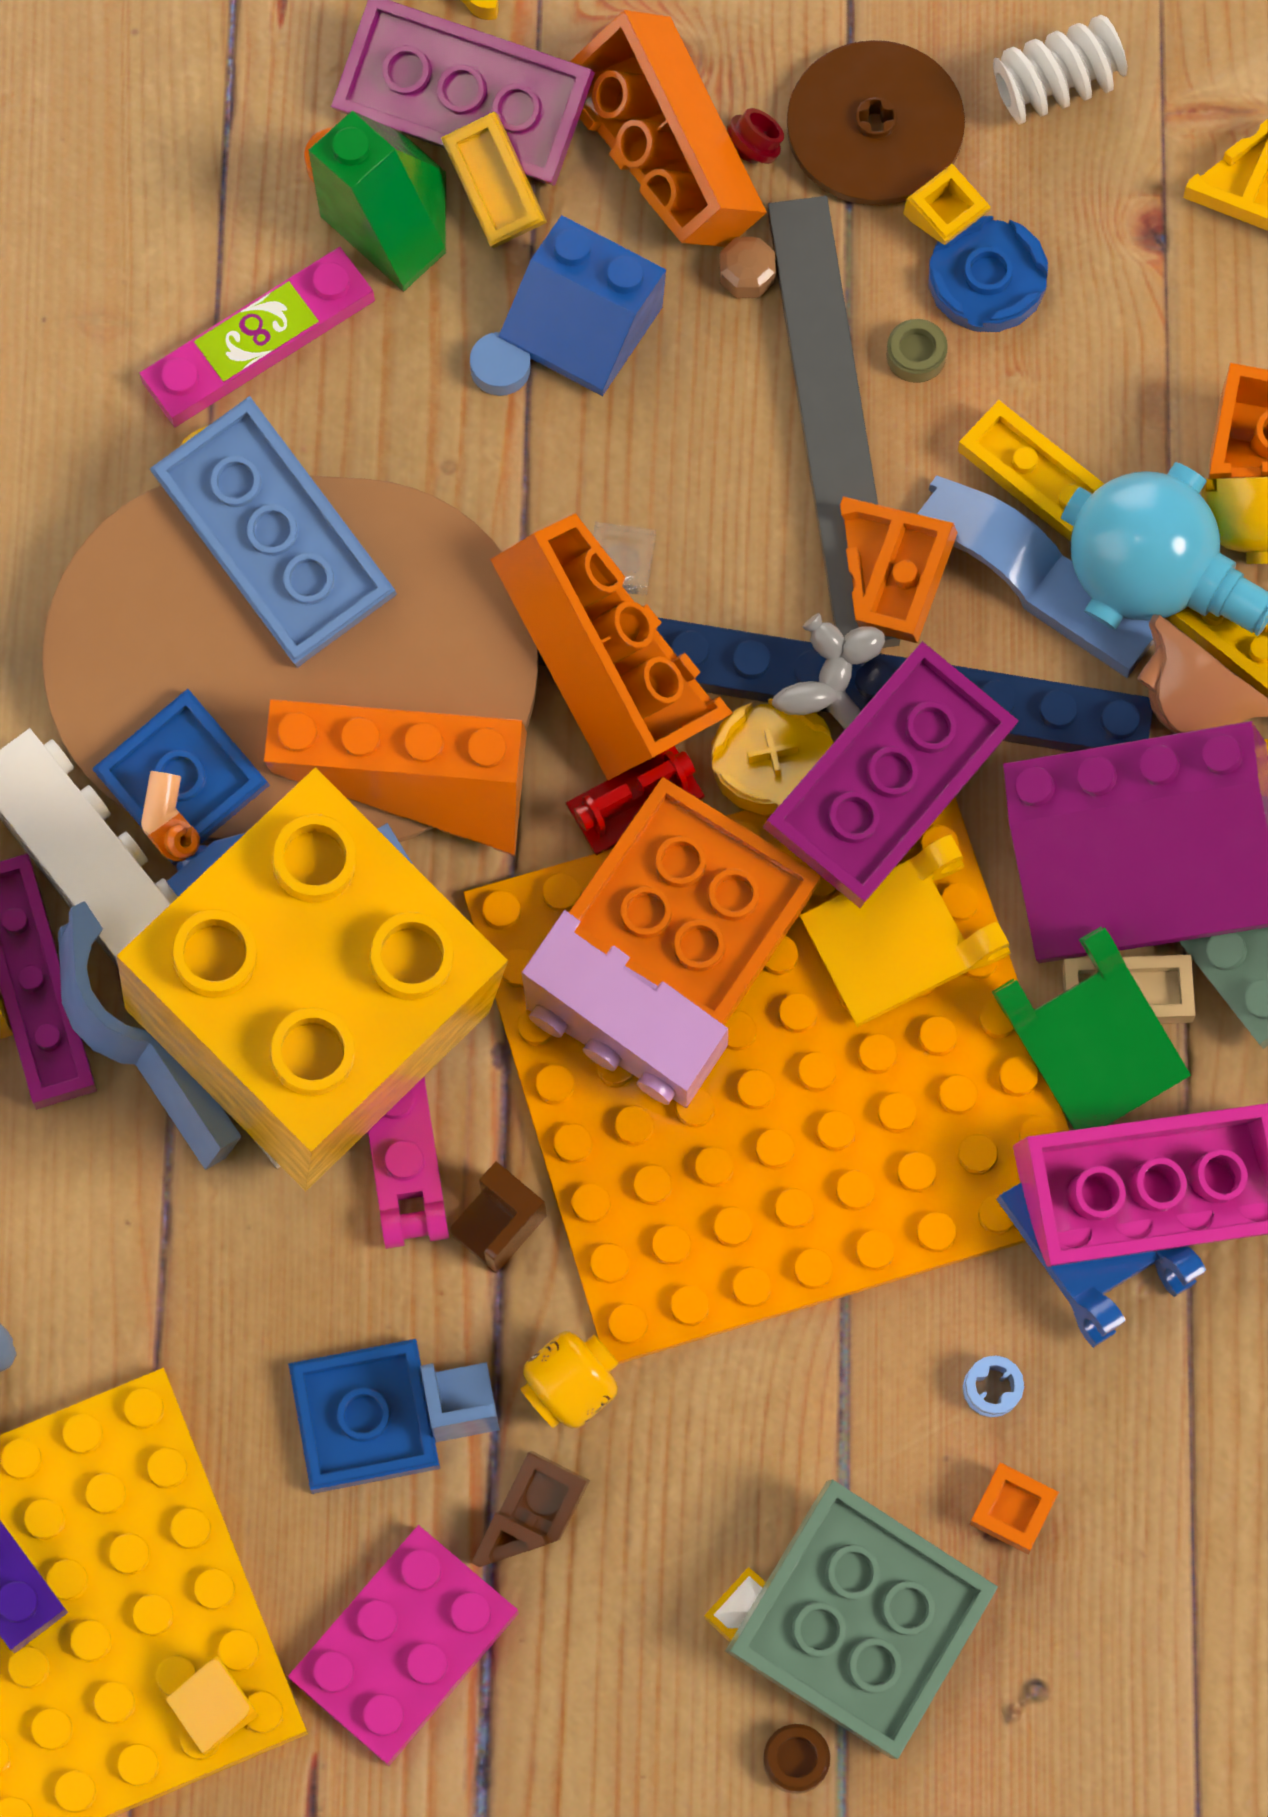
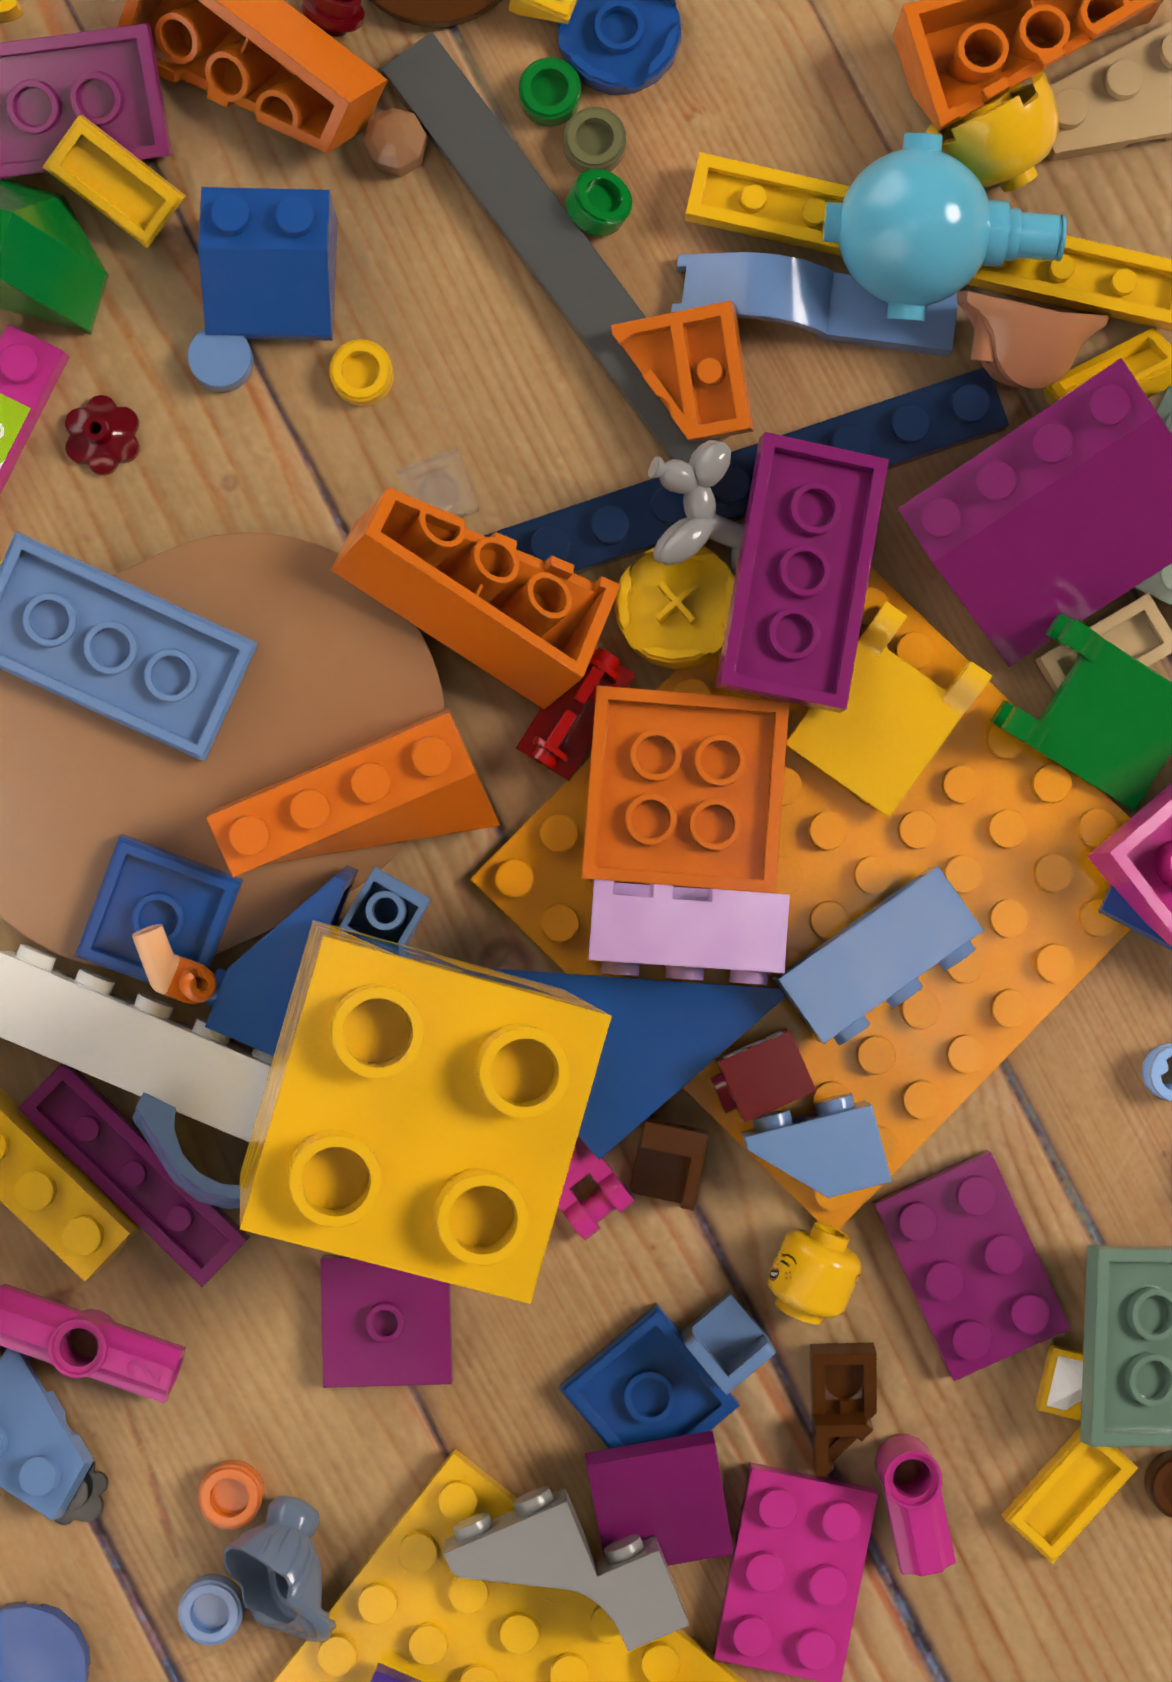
camera: 30 degrees left, 15 degrees up
(173, 1224) = (383, 1326): none -> magenta plate
(202, 1475) = (547, 1548): none -> light grey arch
(318, 1508) = (663, 1491): none -> magenta tile
(365, 384) = (114, 442): none -> dark red plant
(526, 1097) = (654, 1041): none -> blue tile
(542, 1643) = (915, 1508): none -> dark pink piece
(612, 434) = (361, 372): none -> yellow tile
(619, 1177) = (762, 1076): none -> dark red brick
(639, 1269) = (826, 1150): none -> medium blue slope
(692, 1709) = (1067, 1494): none -> yellow tile
(715, 1457) = (971, 1265): none -> magenta plate
(779, 1131) = (880, 957): none -> medium blue brick
(891, 398) = (599, 202): none -> green tile
(900, 292) = (549, 91): none -> green tile

